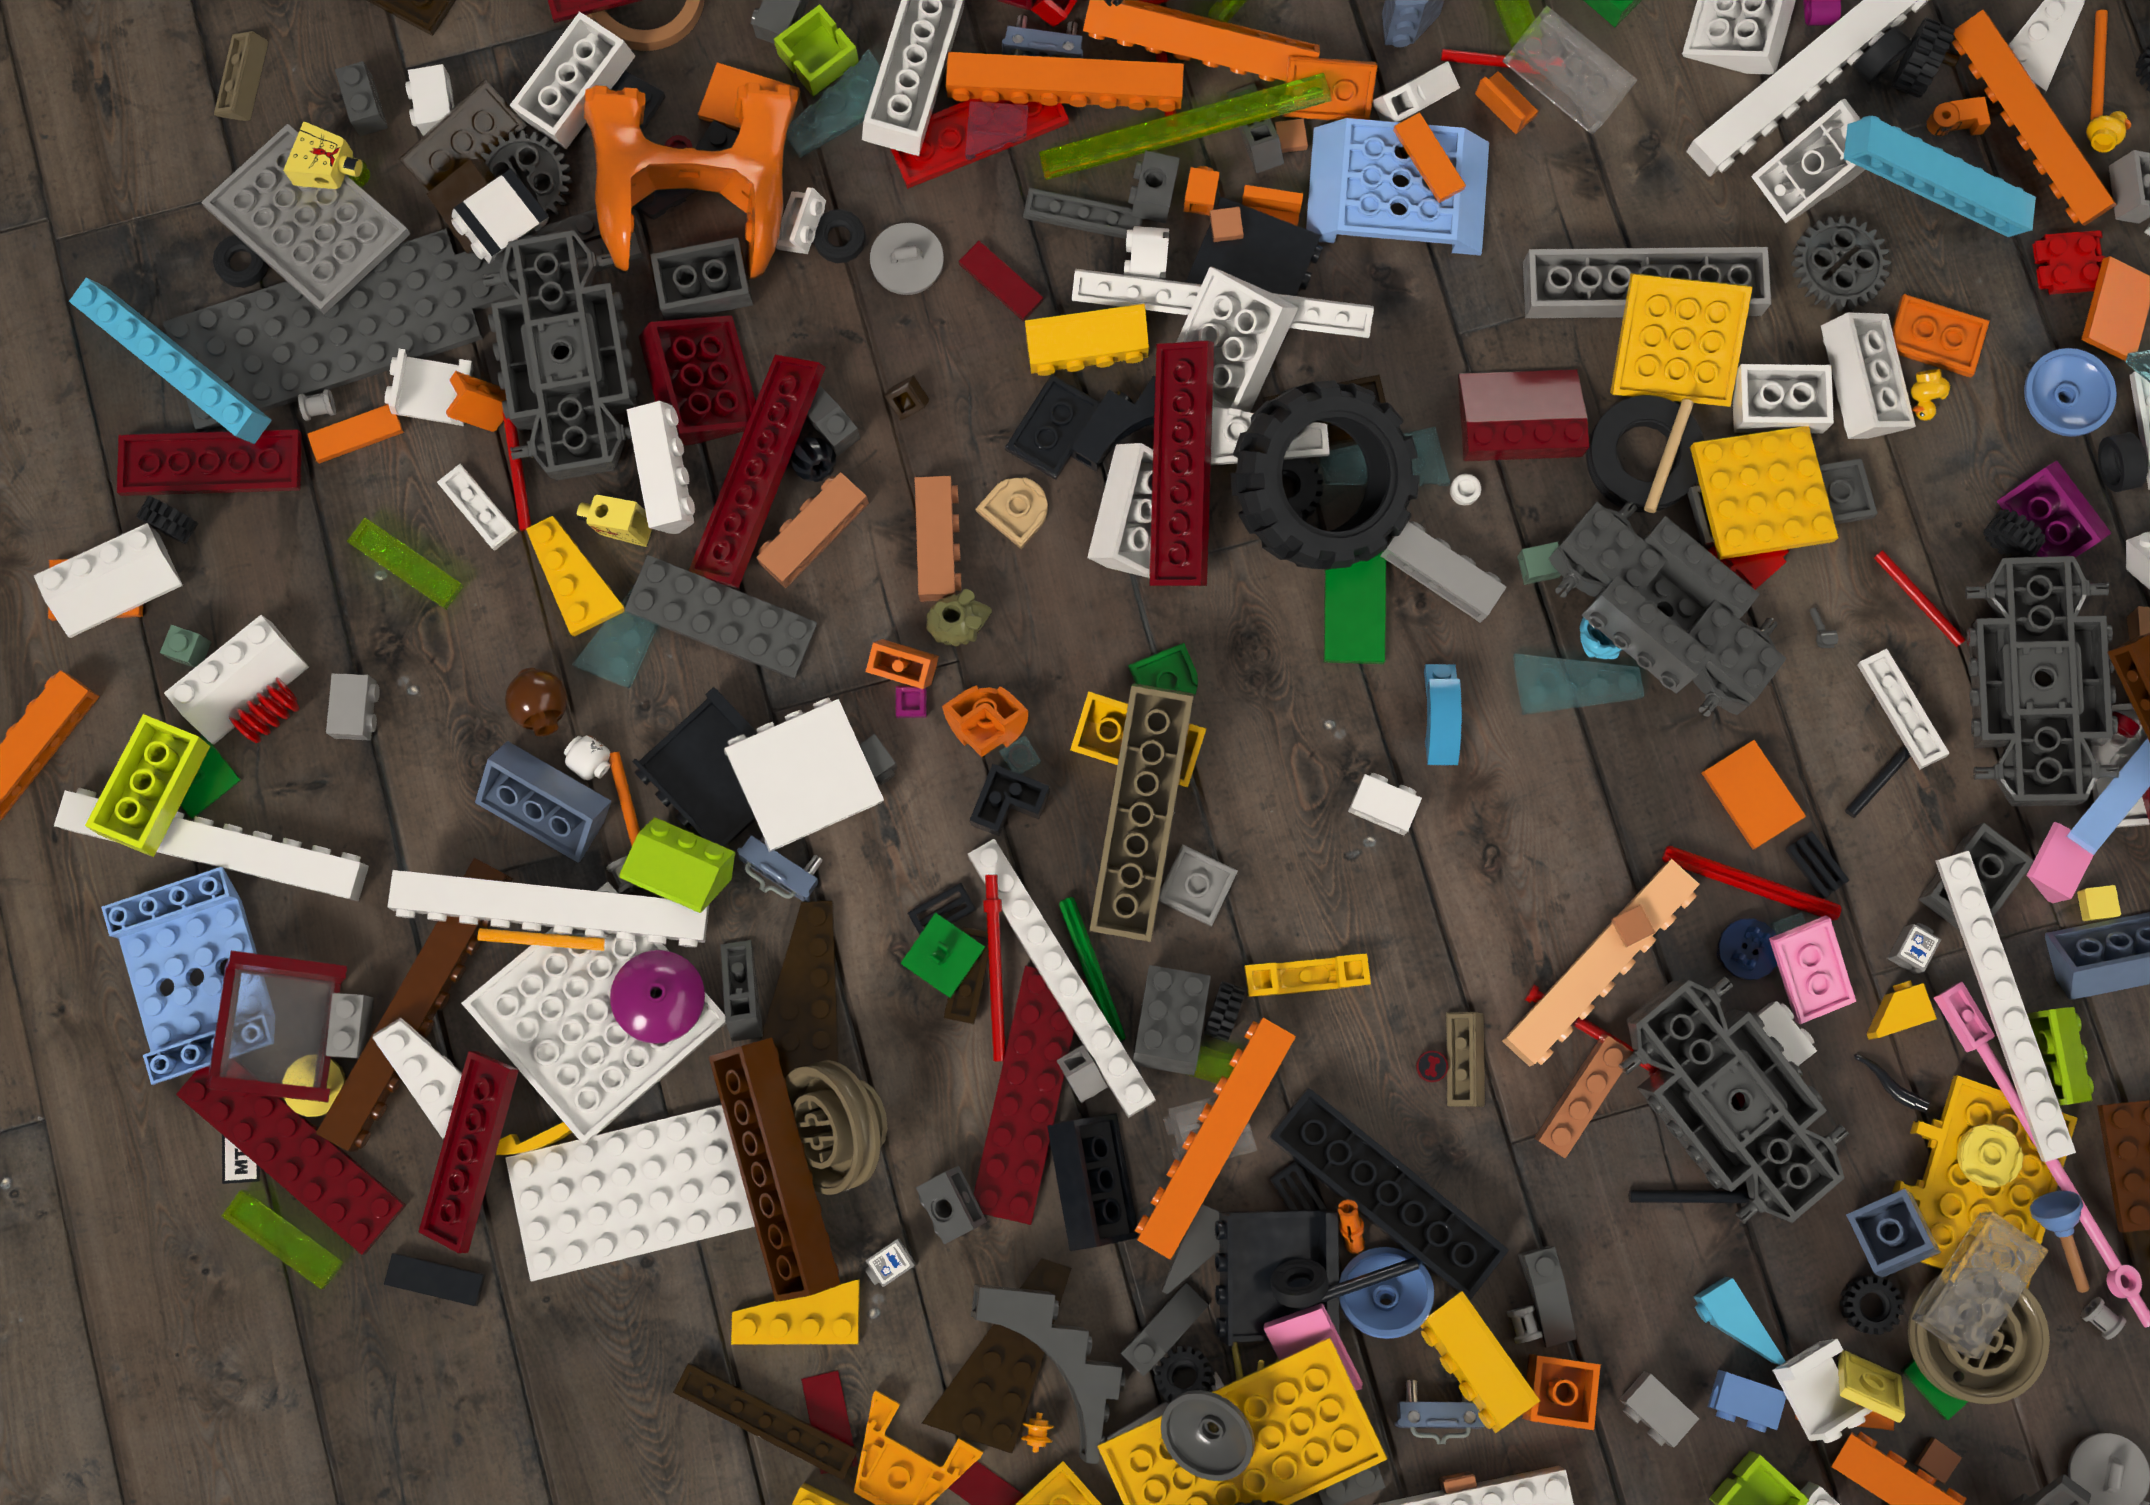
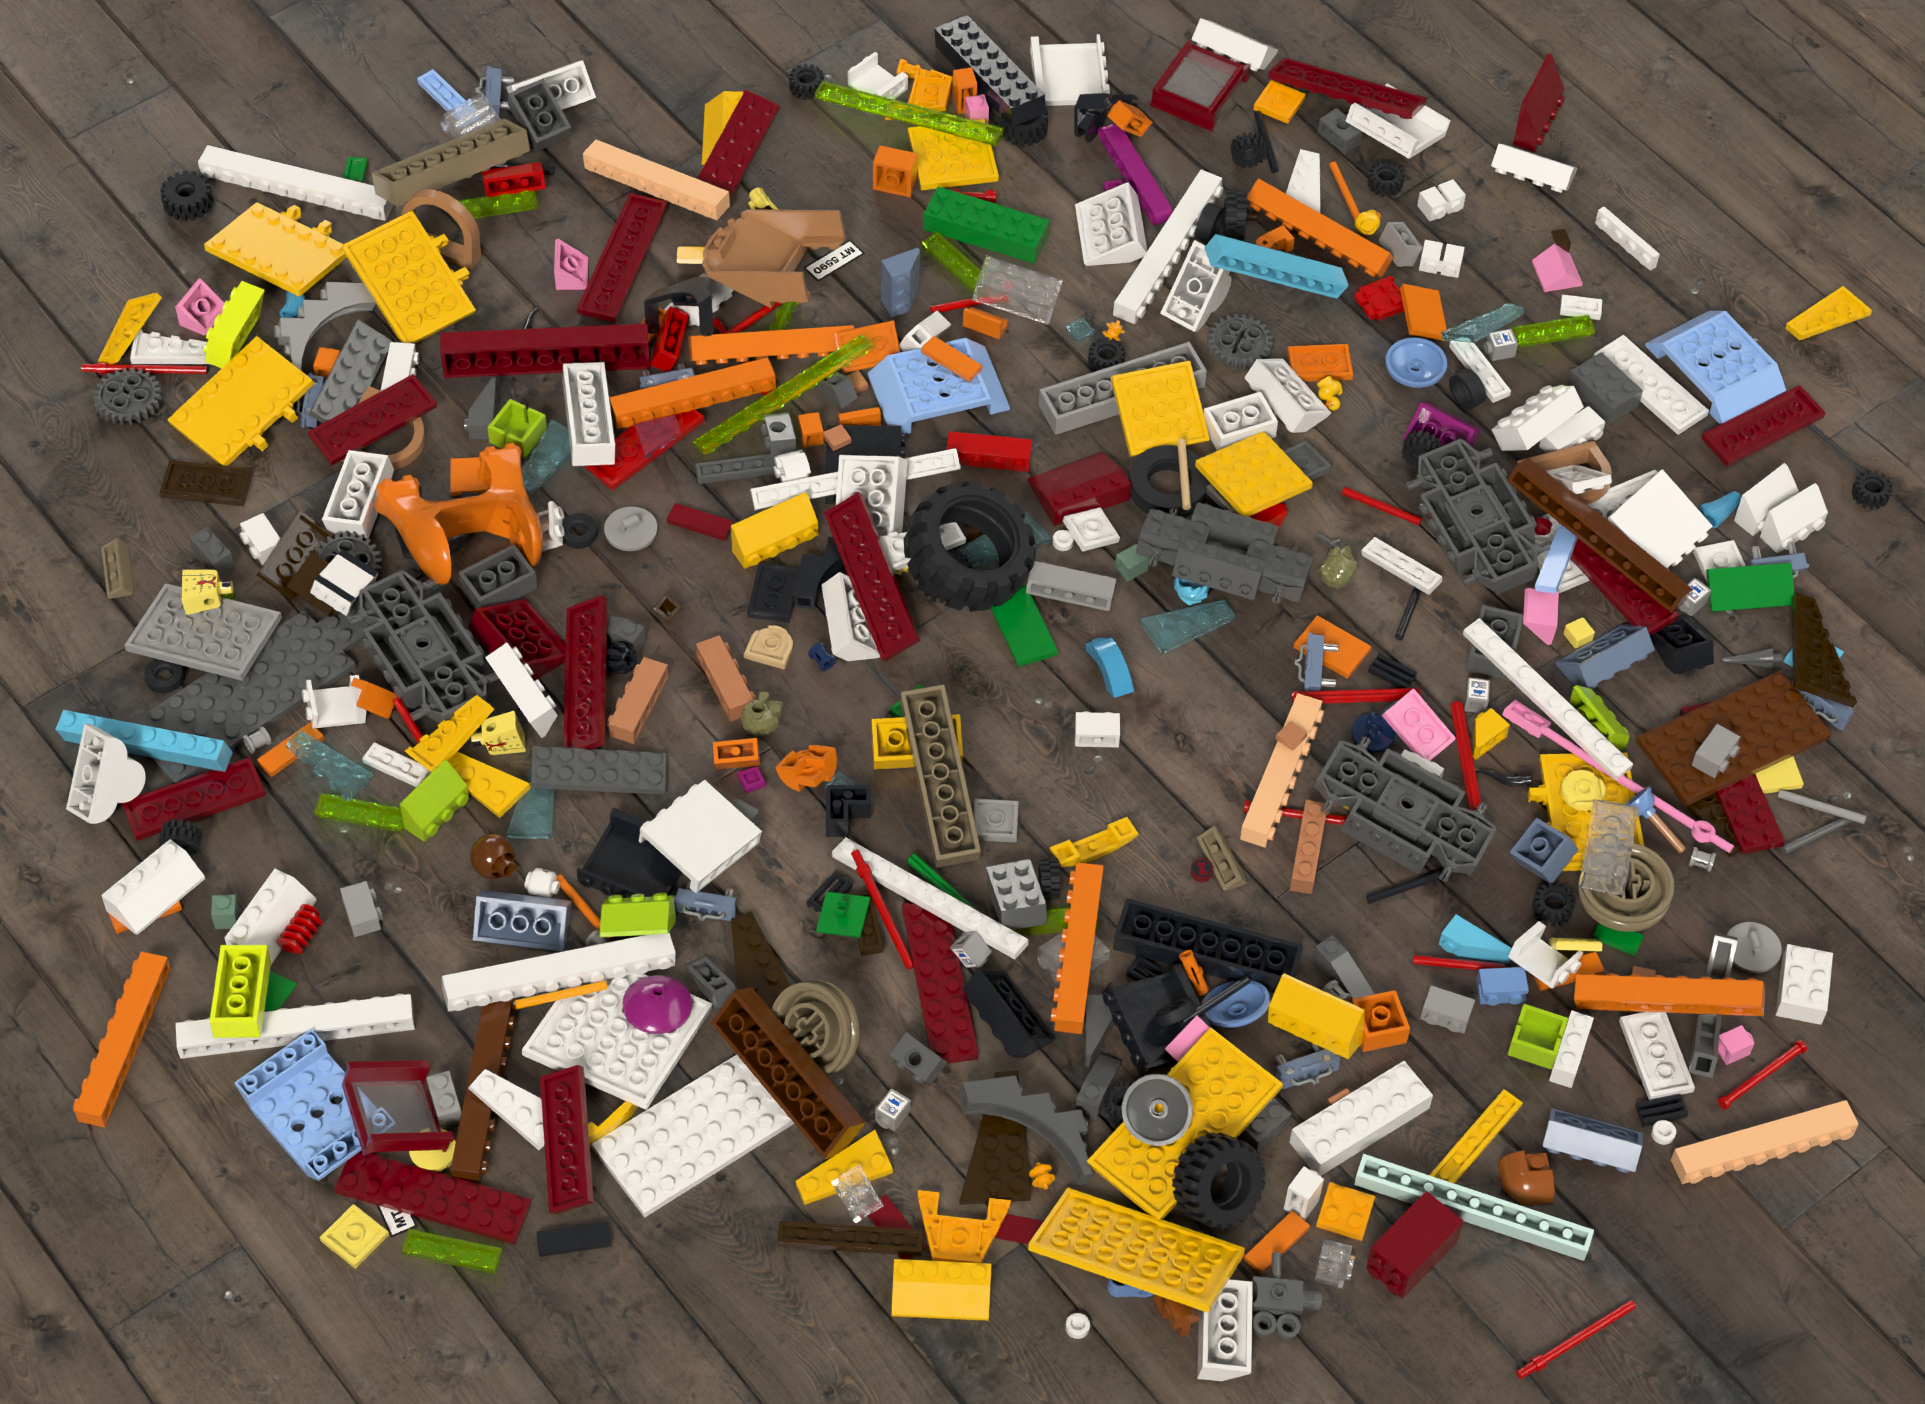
camera: 25 degrees left, 25 degrees down
(98, 398) = (102, 776): none -> white brick
(178, 1166) = (354, 1236): none -> light yellow tile
(396, 491) = (333, 766): none -> clear light blue wing
(495, 589) = (434, 801): none -> lime slope
(540, 505) = (451, 734): none -> yellow wing
(794, 1373) = (857, 1193): none -> clear brick
(1073, 553) = (822, 657): none -> dark blue bush
(1424, 315) = (991, 451): none -> red brick
(1509, 488) = (1091, 529): none -> white tile
(1630, 160) = (1079, 330): none -> clear light blue tile
(1654, 204) = (1105, 347): none -> black tyre
(1674, 183) = (1113, 331): none -> light orange wheel
(1706, 1339) = (1455, 963): none -> red bar
(1715, 817) = (1314, 660): none -> sand blue piece
(1814, 679) = (1337, 567): none -> olive animal
(1856, 1035) = (1465, 755): none -> red axle

